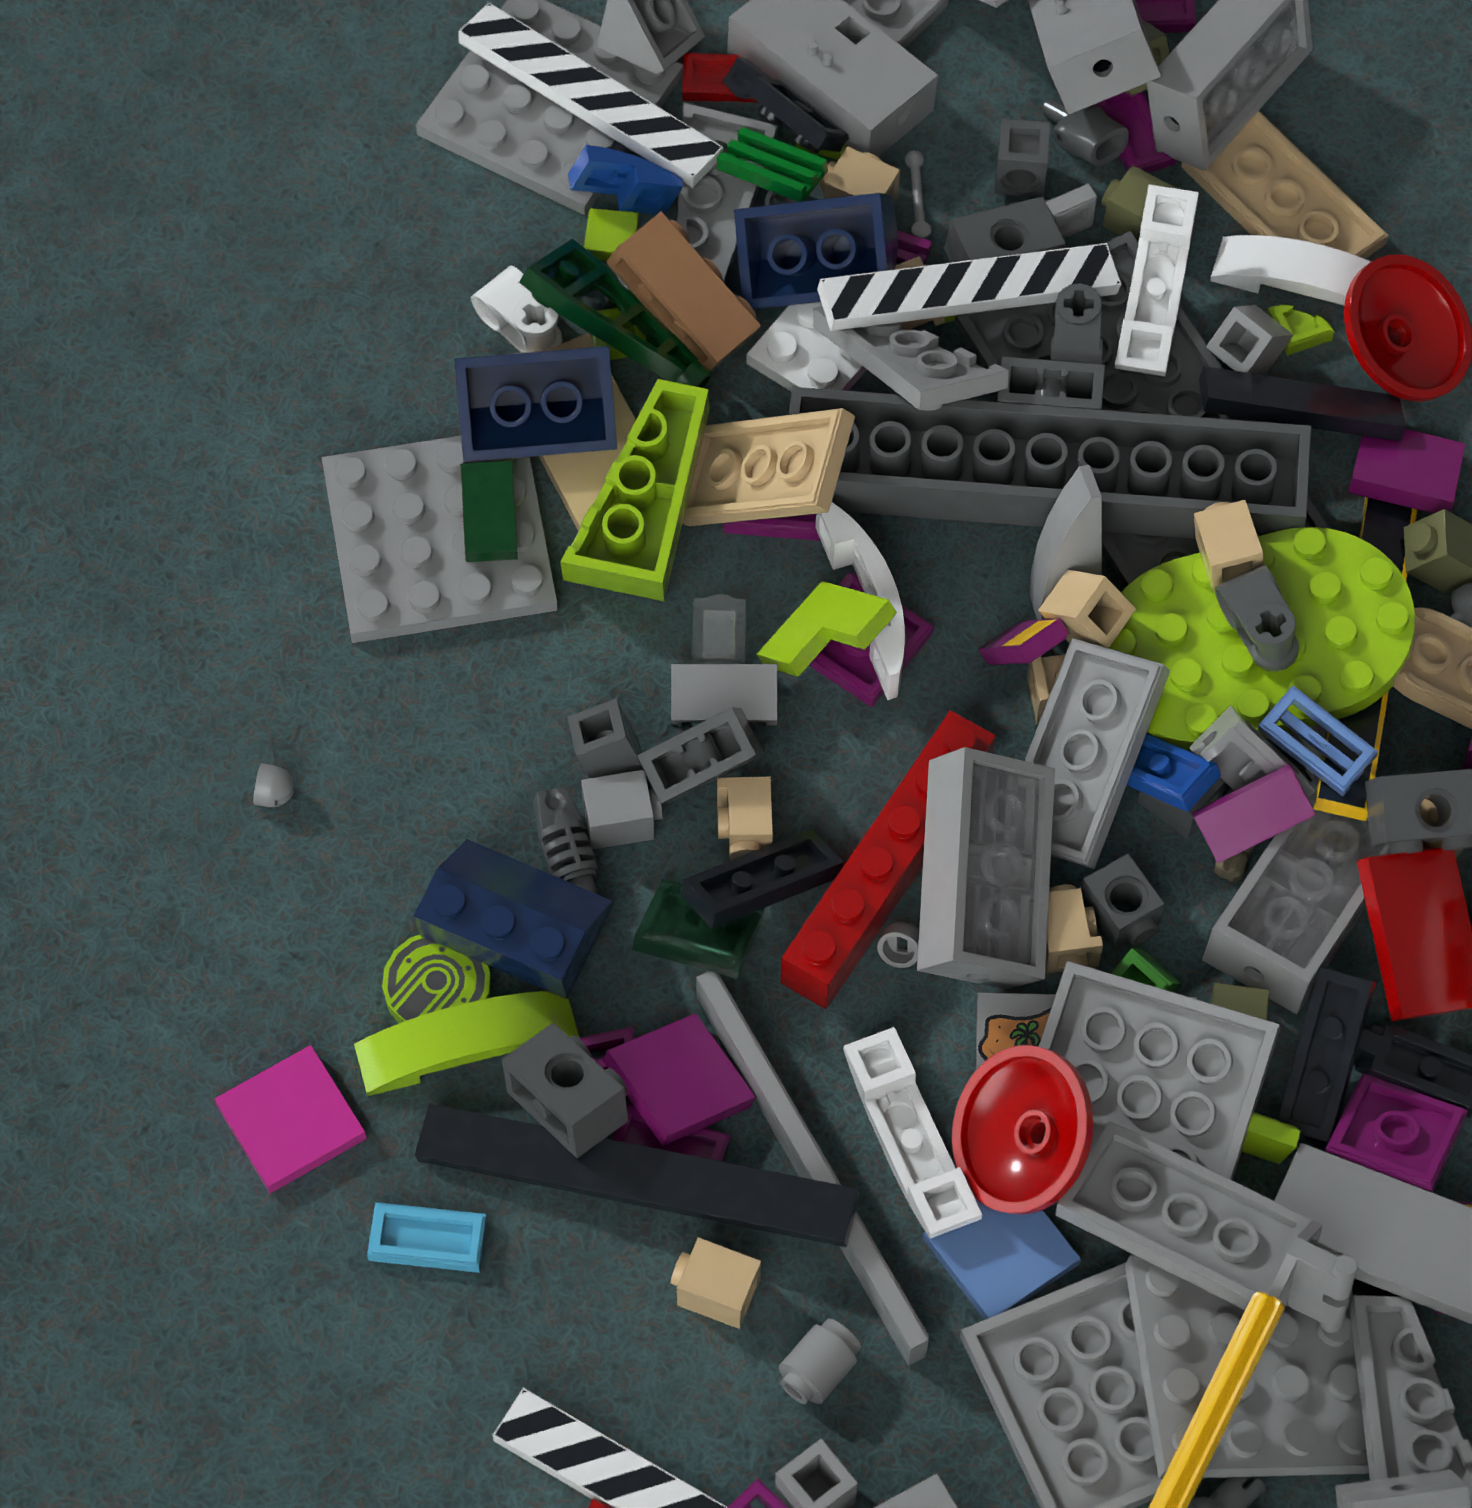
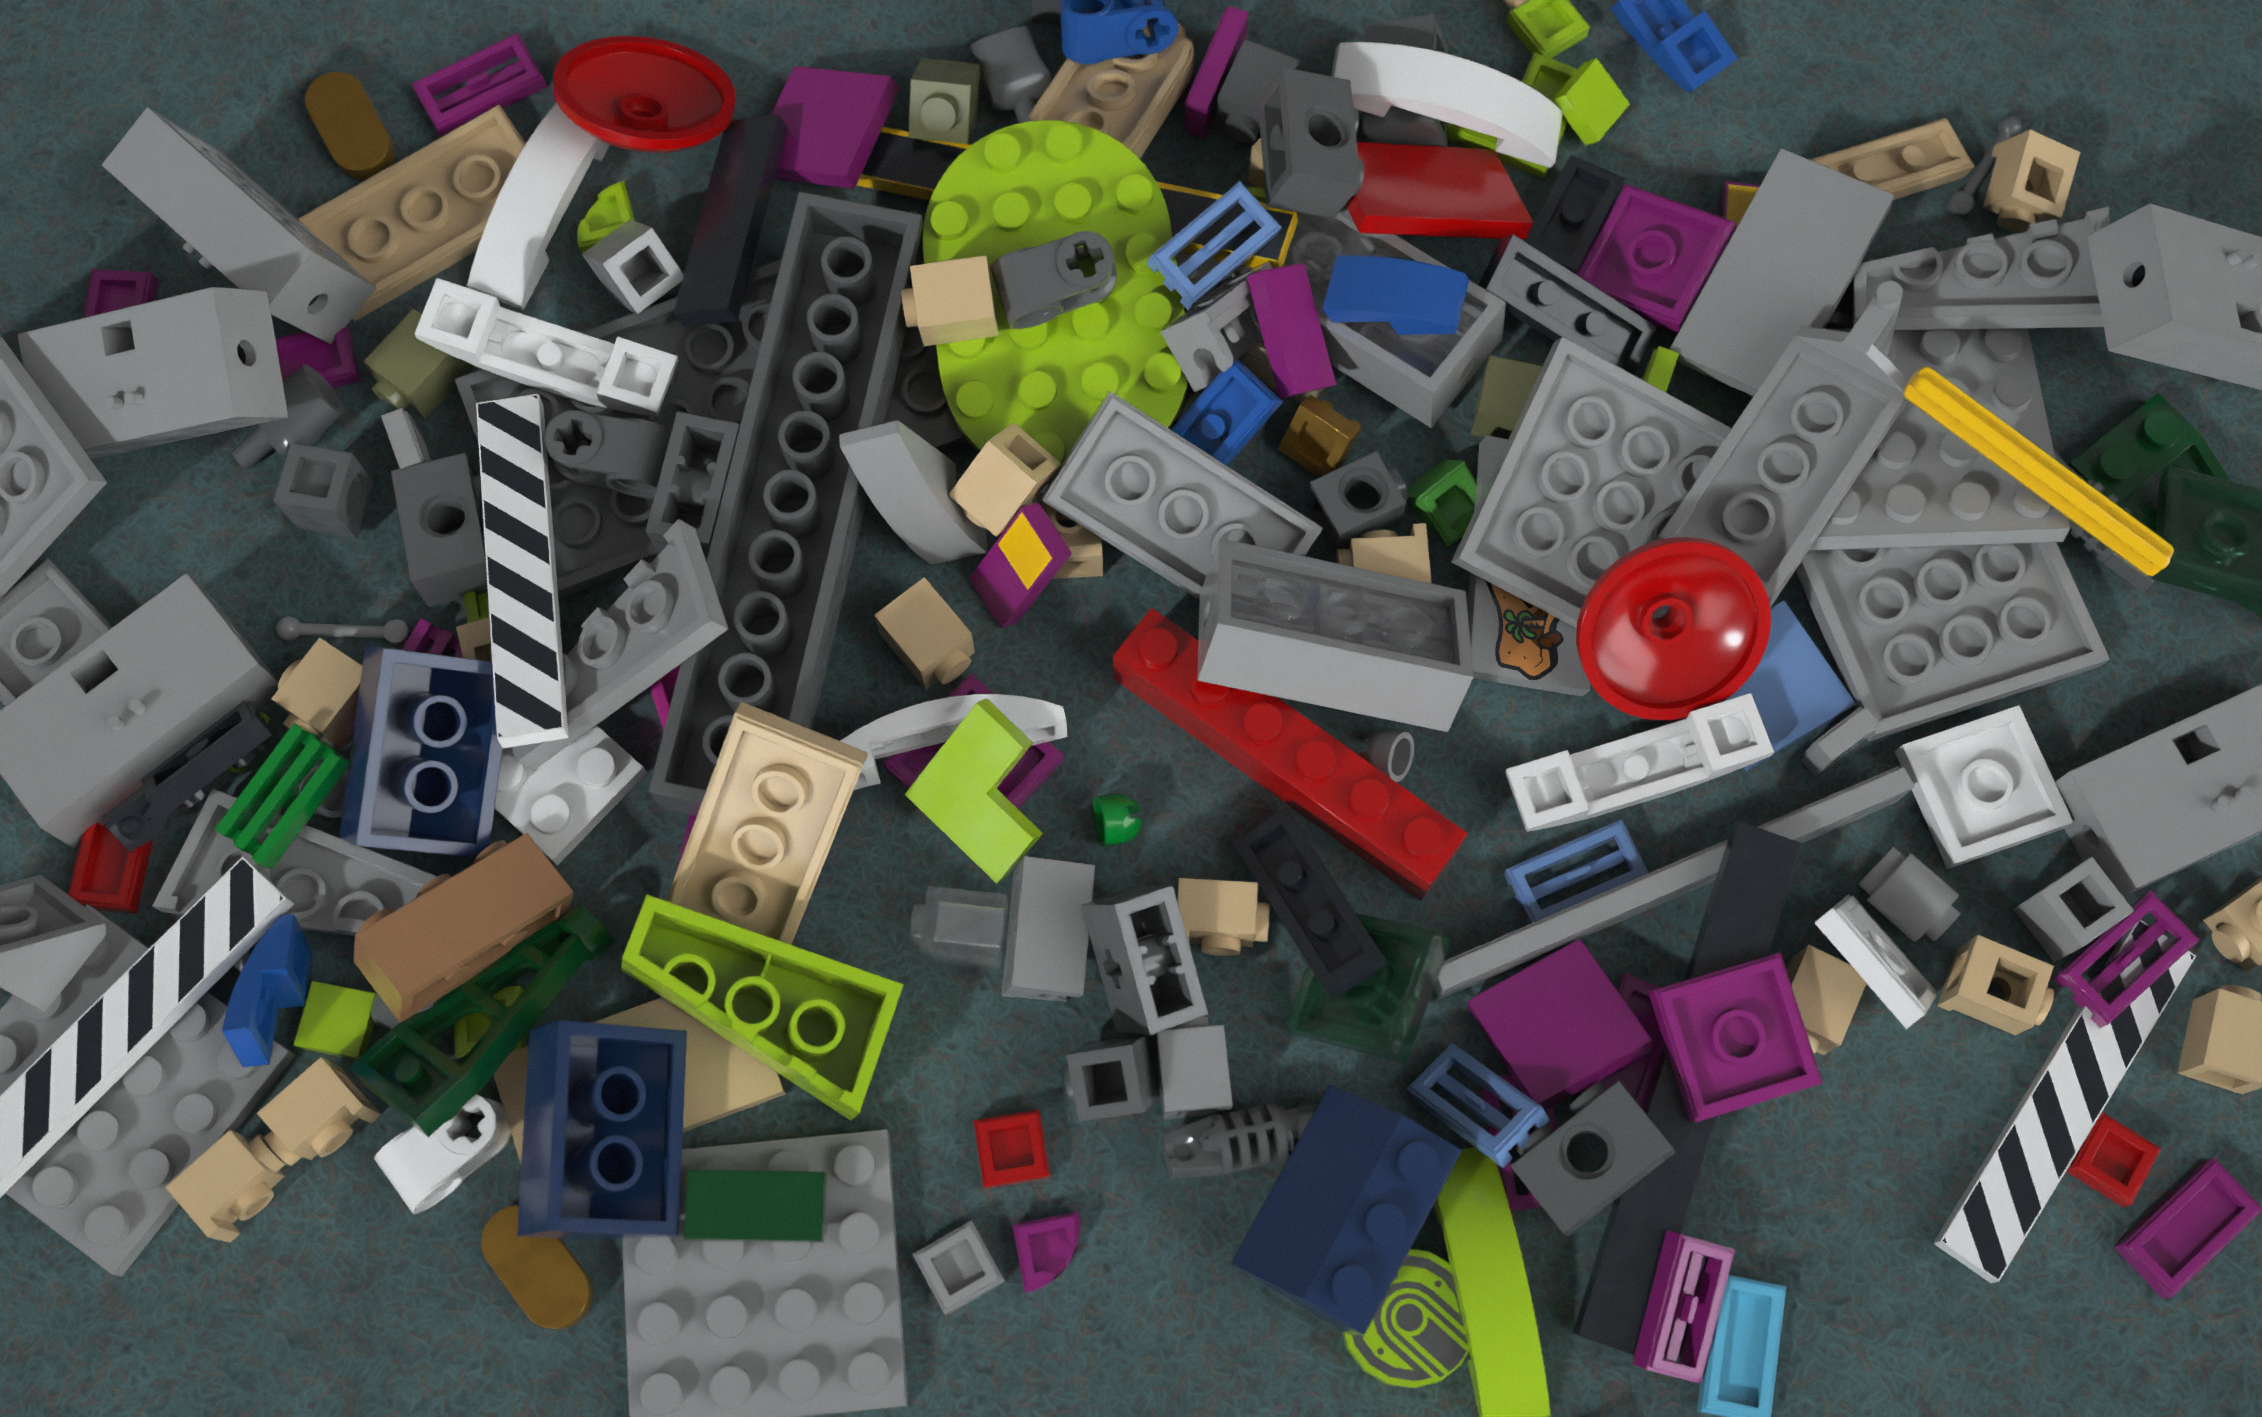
camera: 85 degrees left, 10 degrees up
(431, 389) = (537, 1272): none -> pearl gold tile
(456, 664) = (958, 1268): none -> light grey tile
(474, 722) = (1045, 1248): none -> magenta tile
(483, 181) = (228, 1184): none -> tan brick
(501, 1187) = (1674, 1305): none -> magenta tile
(538, 223) = (315, 1113): none -> tan brick
(549, 692) = (1011, 1149): none -> red tile
(600, 1039) = (1510, 1131): none -> medium blue tile
(674, 1196) = (1735, 1037): none -> magenta tile
(749, 1414) = (2019, 975): none -> tan brick
(753, 1317) = (1878, 960): none -> white tile
(822, 739) = (1113, 820): none -> green hinge
(834, 1138) = (1528, 897): none -> medium blue tile
(926, 1425) = (1983, 787): none -> white plate
(951, 1300) = (1839, 740): none -> light grey tile
(960, 587) = (926, 635): none -> tan brick
(1178, 870) = (1319, 437): none -> pearl gold tile
(1297, 888) = (1405, 293): none -> blue slope
(1351, 136) = (349, 125): none -> pearl gold tile
(1404, 241) = (482, 91): none -> magenta tile

